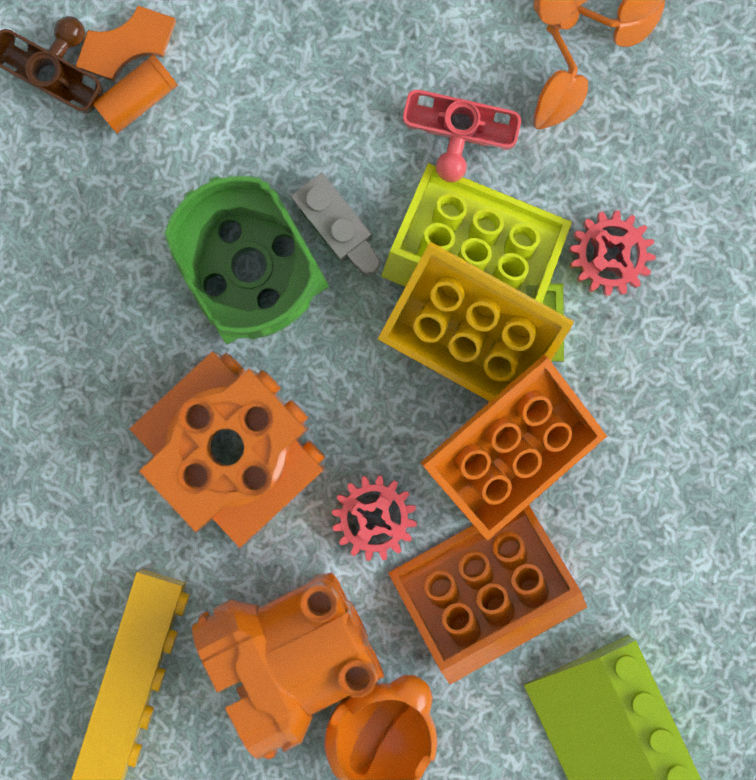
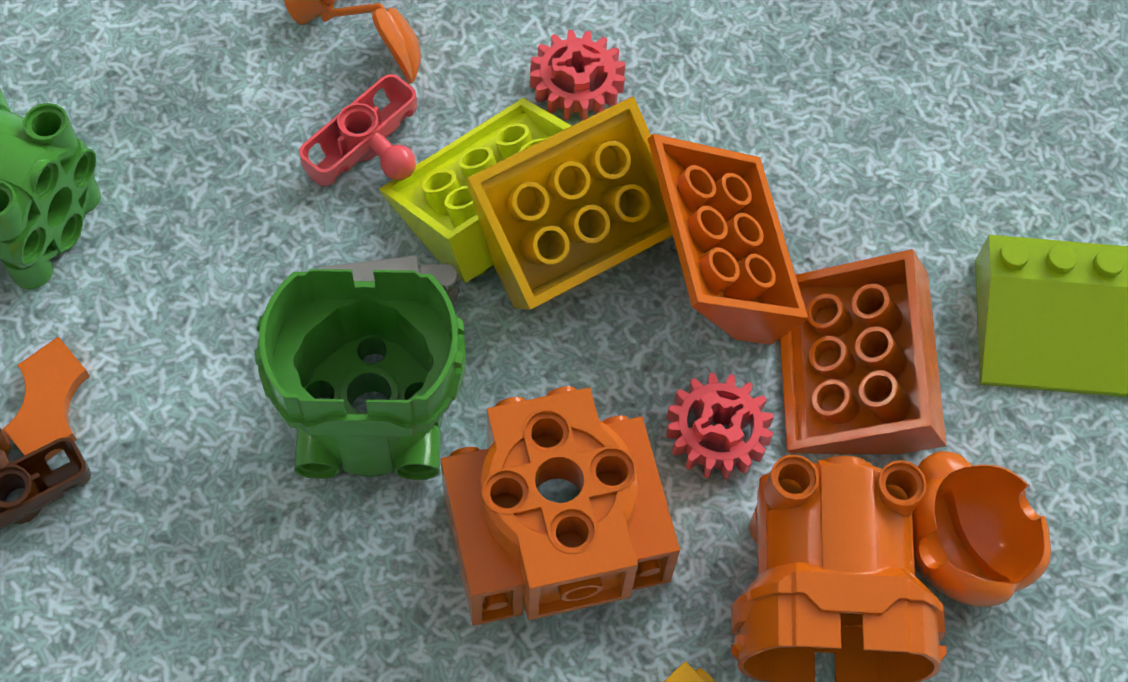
camera: 65 degrees left, 25 degrees down
(135, 94) = (106, 416): orange pin -> none

